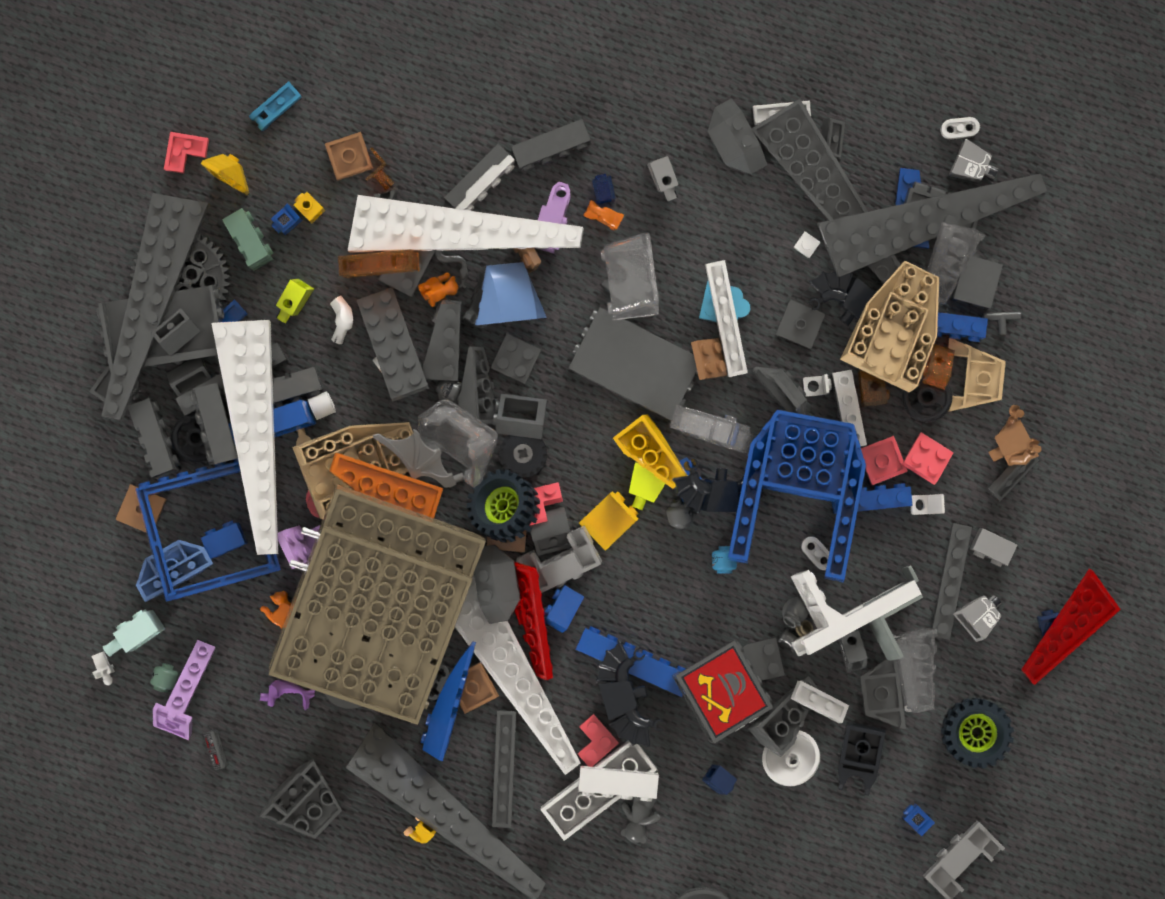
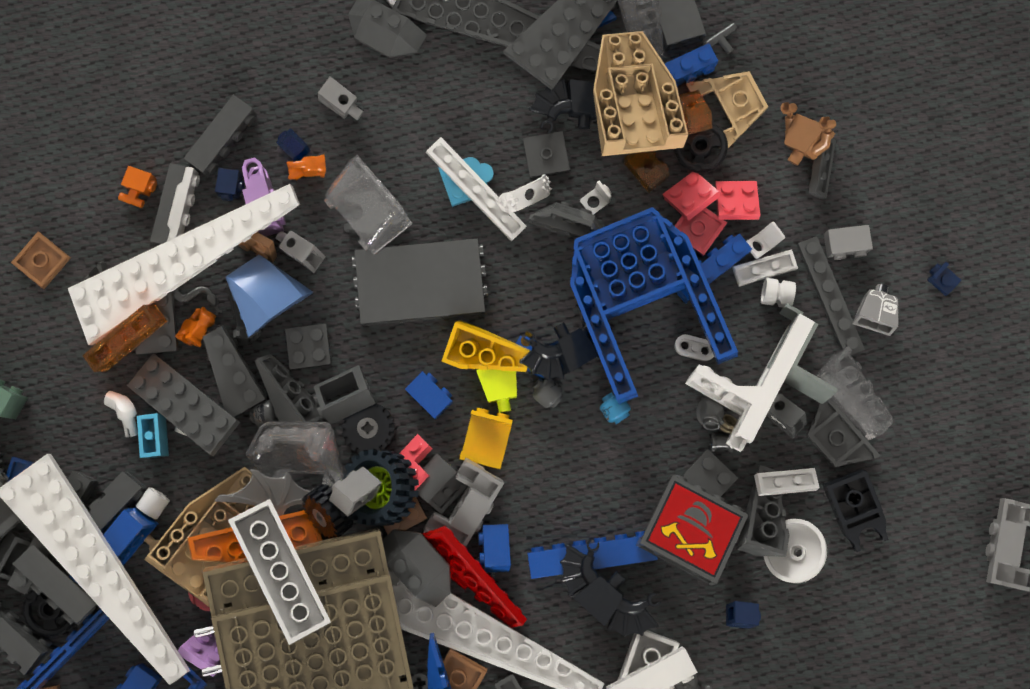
camera: 30 degrees left, 5 degrees down
(285, 220) = (16, 353): blue window -> none
(298, 293) = (65, 421): neon yellow torso -> none
(308, 207) = (31, 328): yellow brick -> none
(353, 353) = (152, 436): none -> medium azure brick
(379, 174) = (76, 256): clear orange bracket -> none
(394, 525) = (279, 571): none -> white brick
(452, 499) = (325, 514): none -> black wheel
(463, 142) = (137, 183): none -> orange brick
(484, 497) = (354, 490): none -> light grey brick
(534, 189) = (229, 184): none -> dark blue brick
(559, 282) = (300, 250): none -> light grey torso
(586, 457) = (429, 395): none -> blue brick
(601, 741) = (611, 652): coral plate -> none
(709, 358) = (483, 234): medium nougat plate -> none
(713, 429) = (527, 293): clear wedge -> none
(752, 348) = (516, 200): none -> white piece
(806, 244) = (506, 82): white plate -> none
(847, 402) = (630, 192): white piece -> none
(893, 431) = (691, 195): none -> coral plate
(908, 550) = (777, 292): none -> white wheel
(914, 525) = (765, 267): none -> white tile
(917, 819) = (946, 532): blue window -> none
(997, 741) = (969, 413): black wheel -> none
(1080, 617) = (967, 258): red wing -> none

